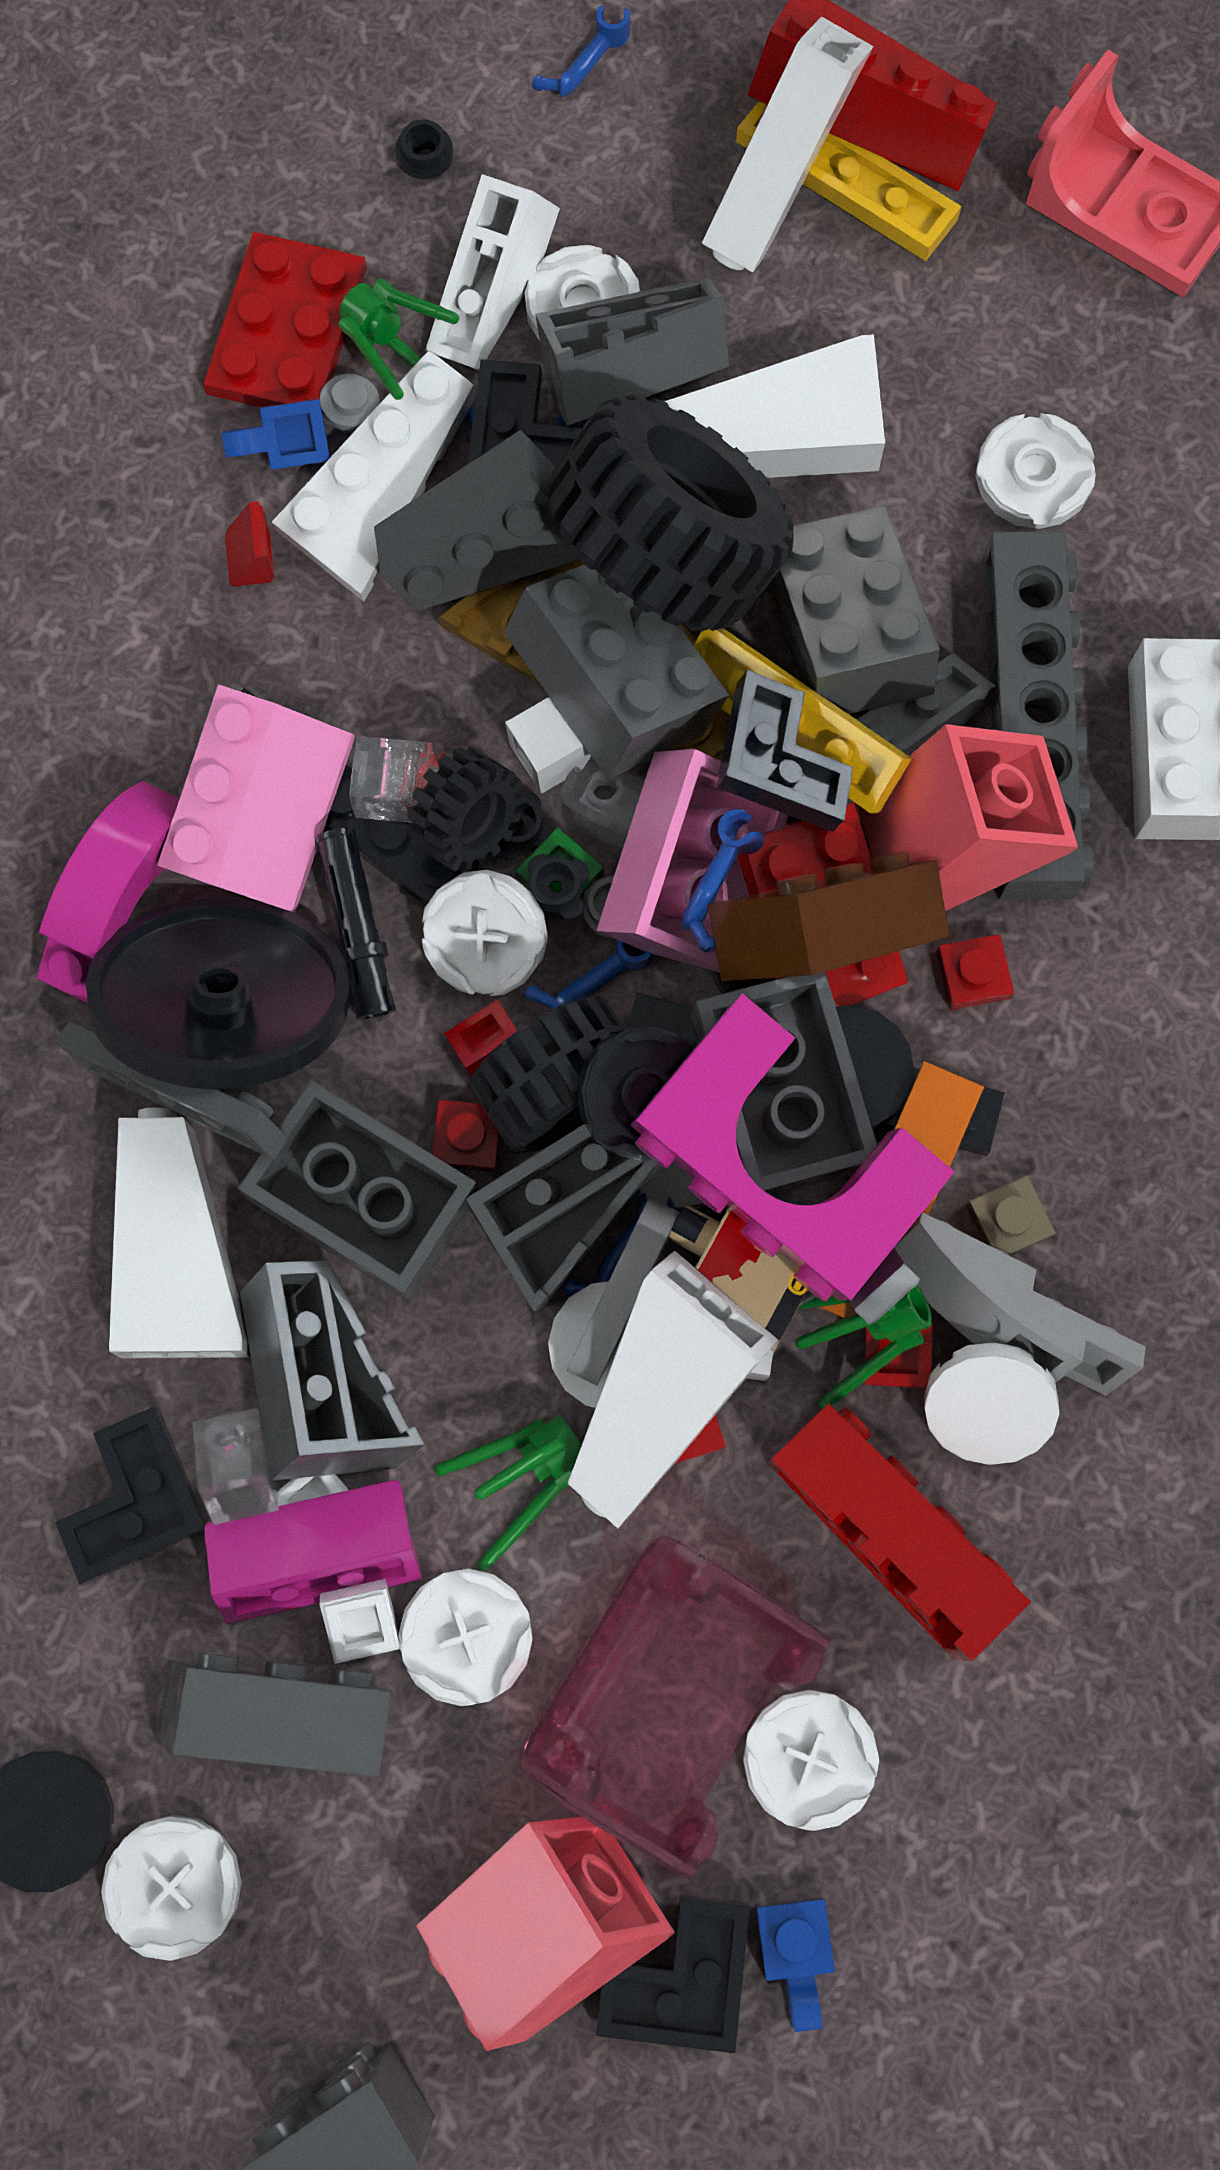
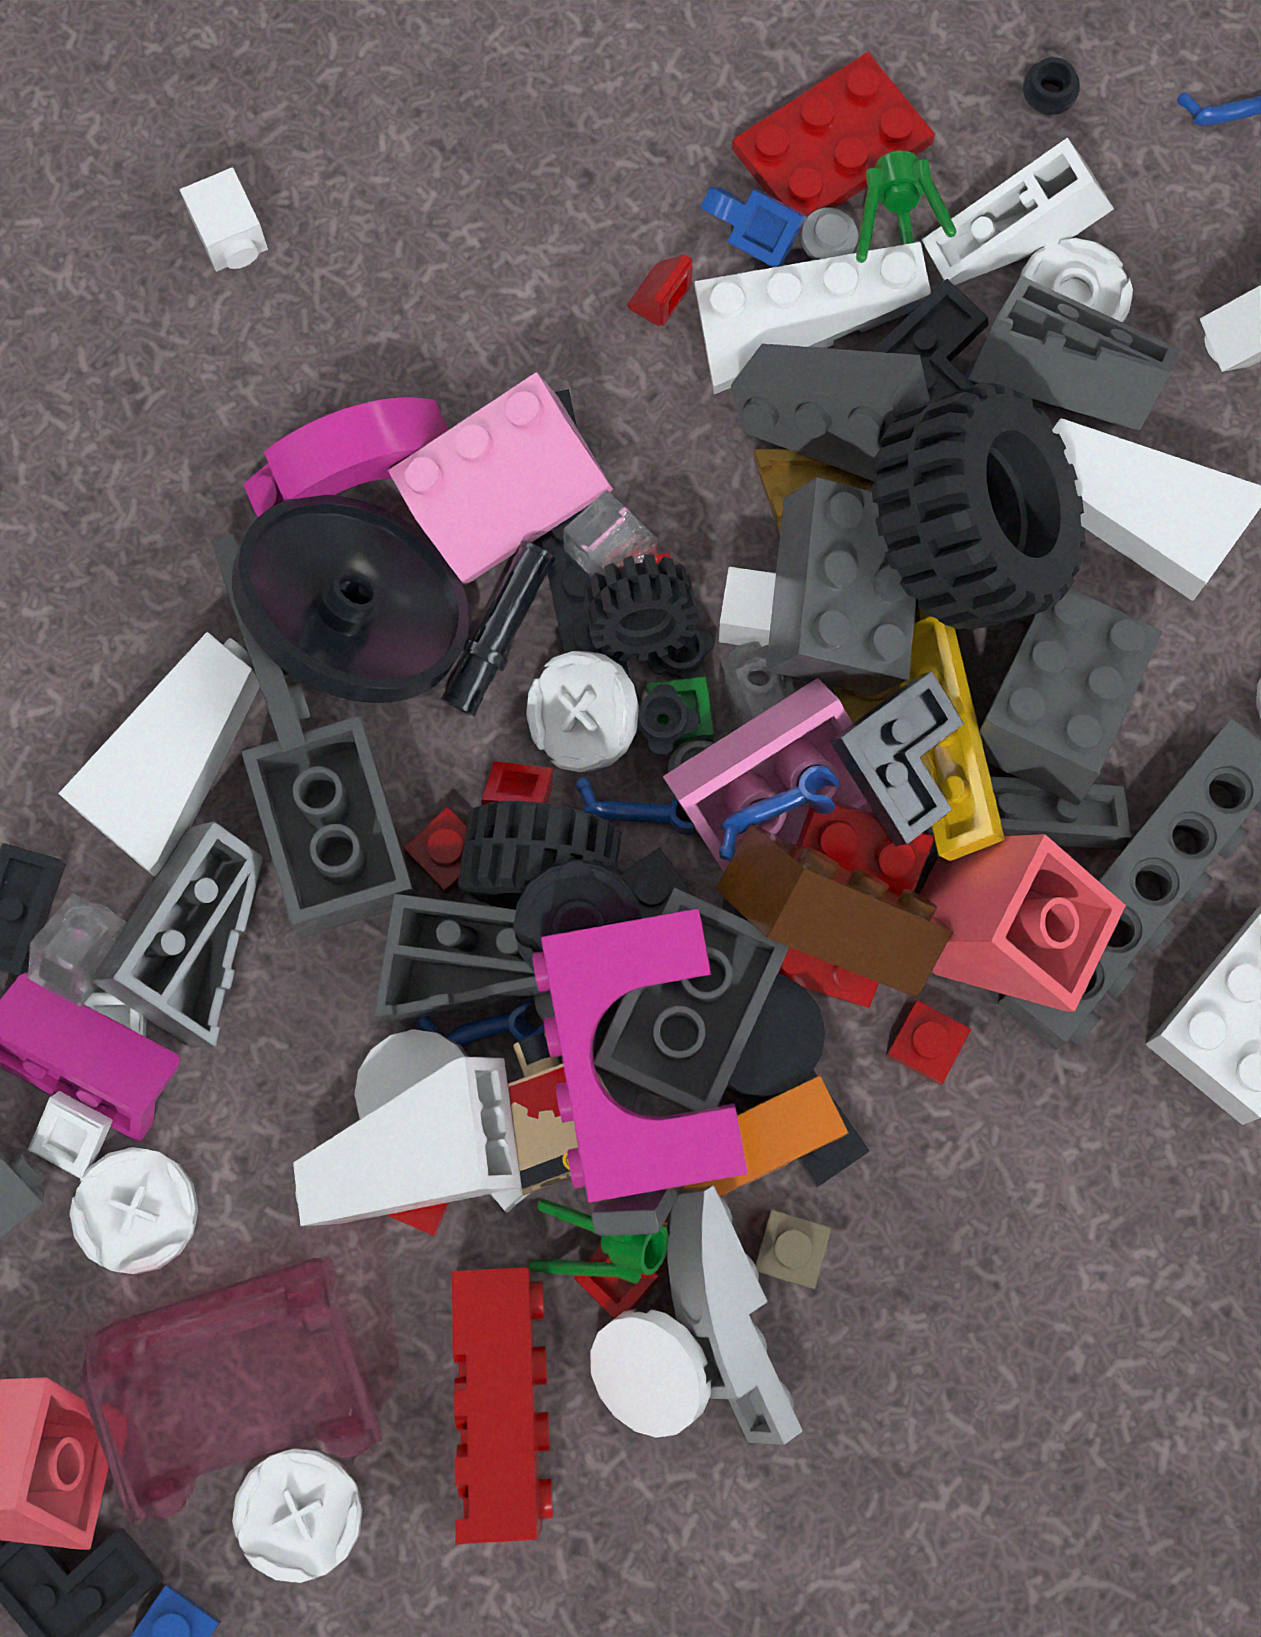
camera: 40 degrees right, 0 degrees up
(548, 1453) = (298, 1128): green plant -> none
(622, 1291) = (487, 1039): light grey beam -> none

